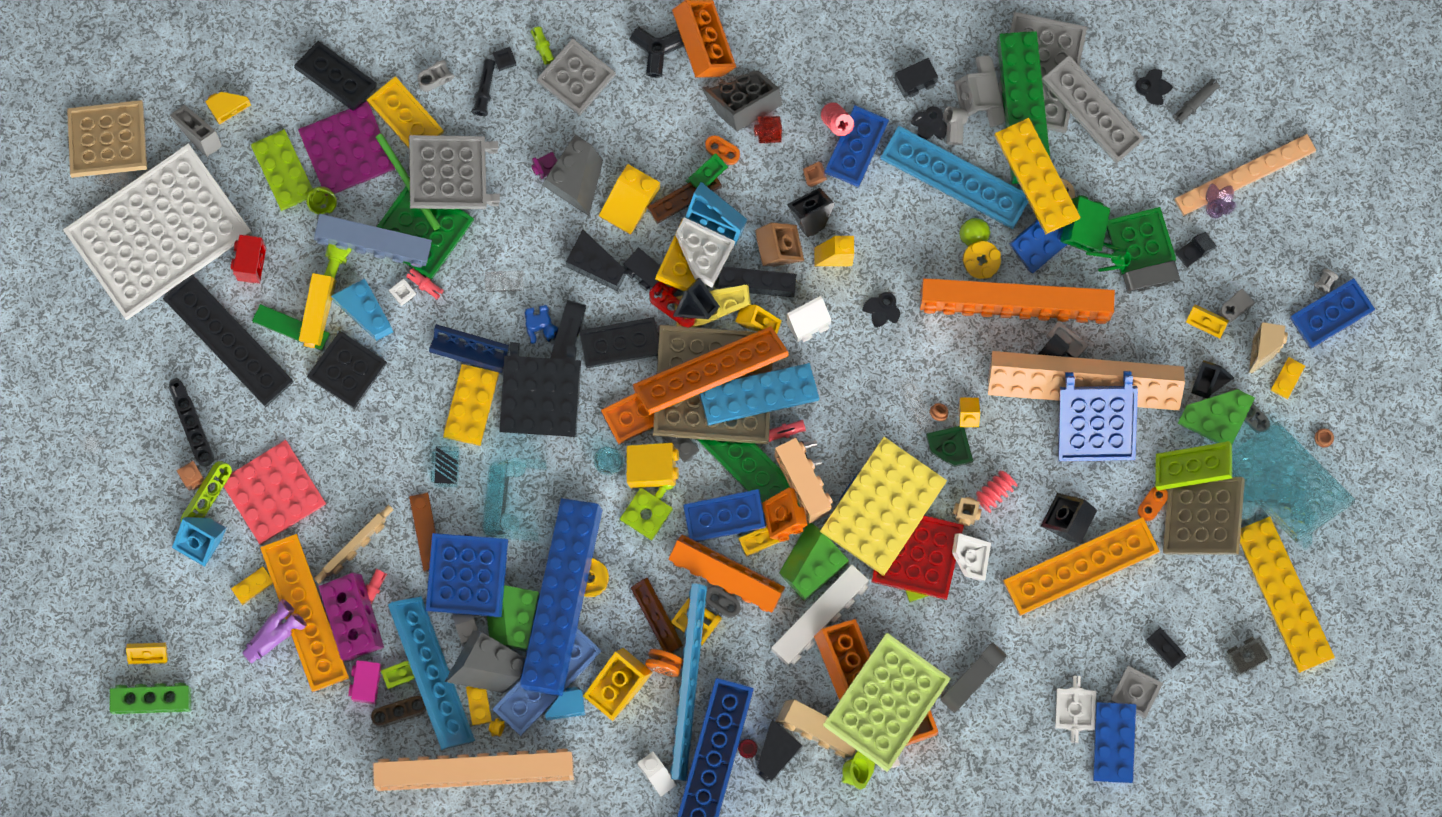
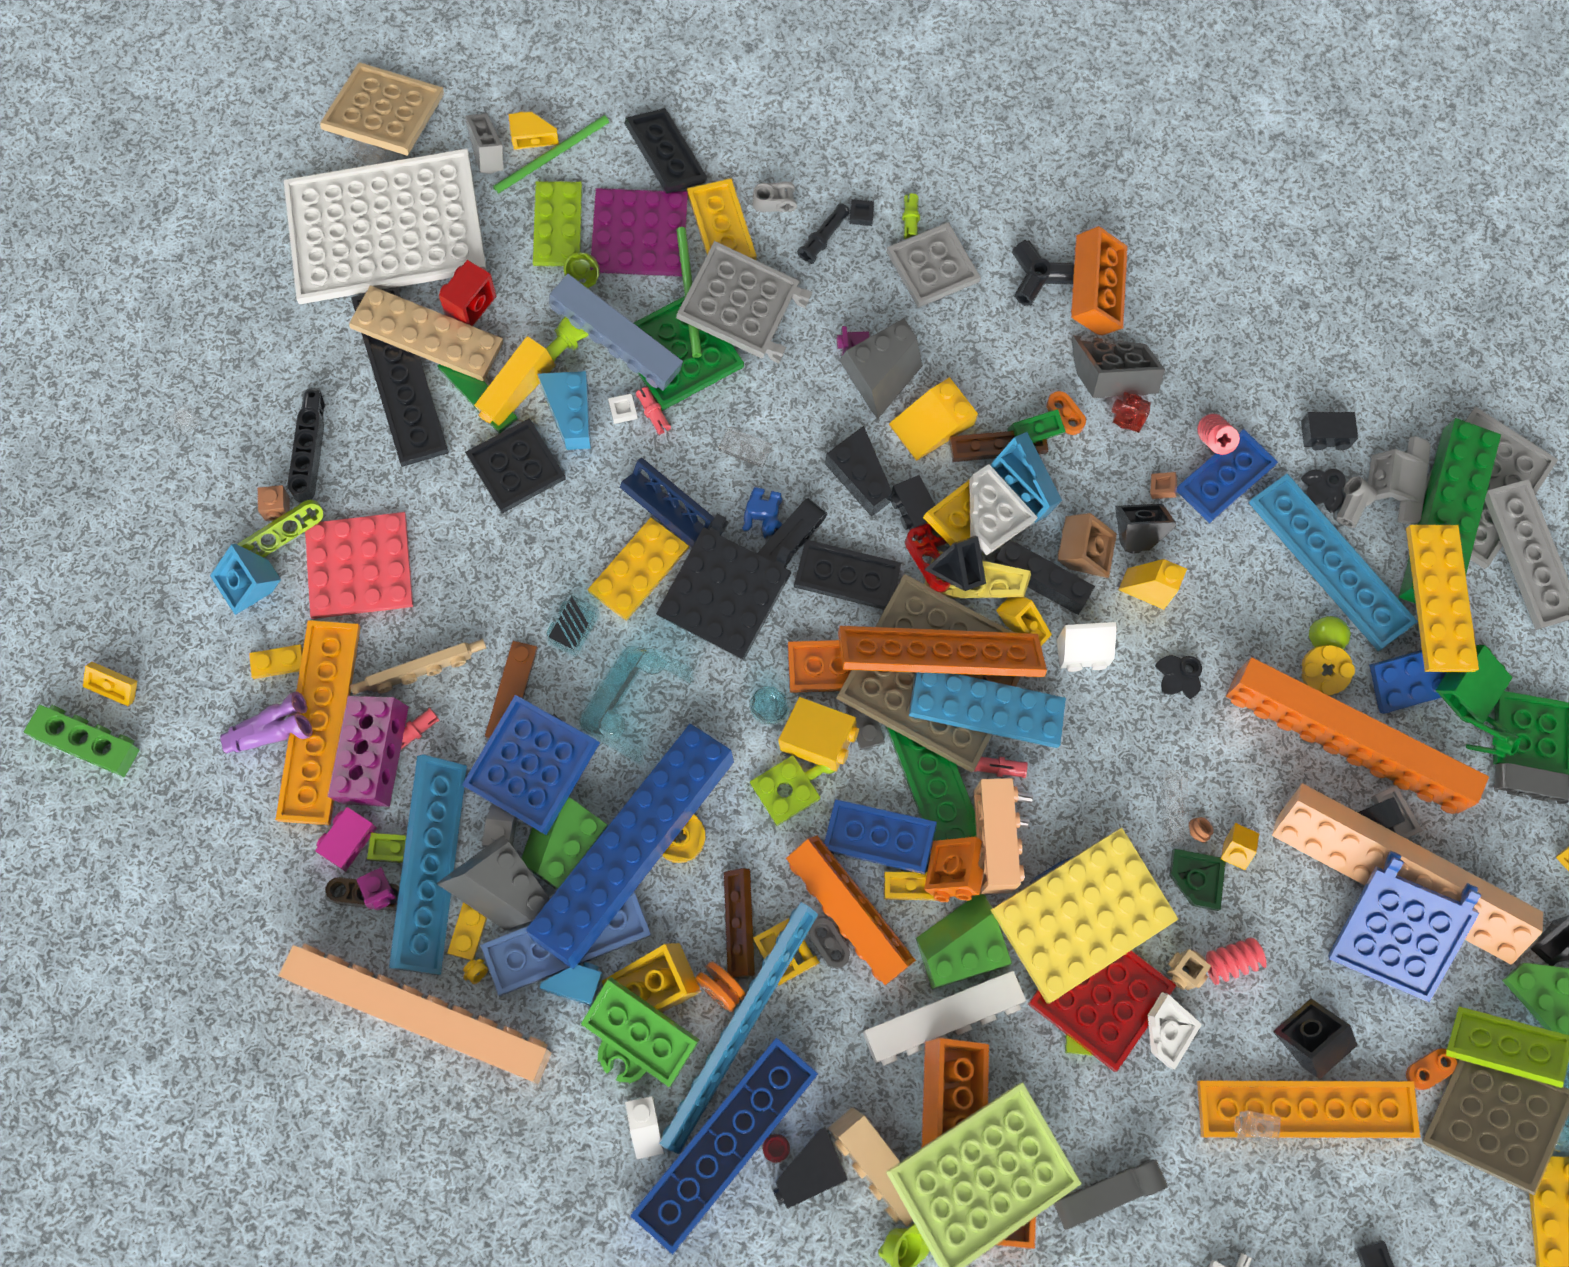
camera: 20 degrees right, 5 degrees down
(233, 300) = (426, 333): none -> tan plate
(250, 115) = (551, 154): none -> bright green piece
(406, 704) = (376, 889): none -> magenta bracket
(624, 718) = (637, 1035): none -> bright green plate
(1051, 593) = (1257, 1128): none -> clear brick

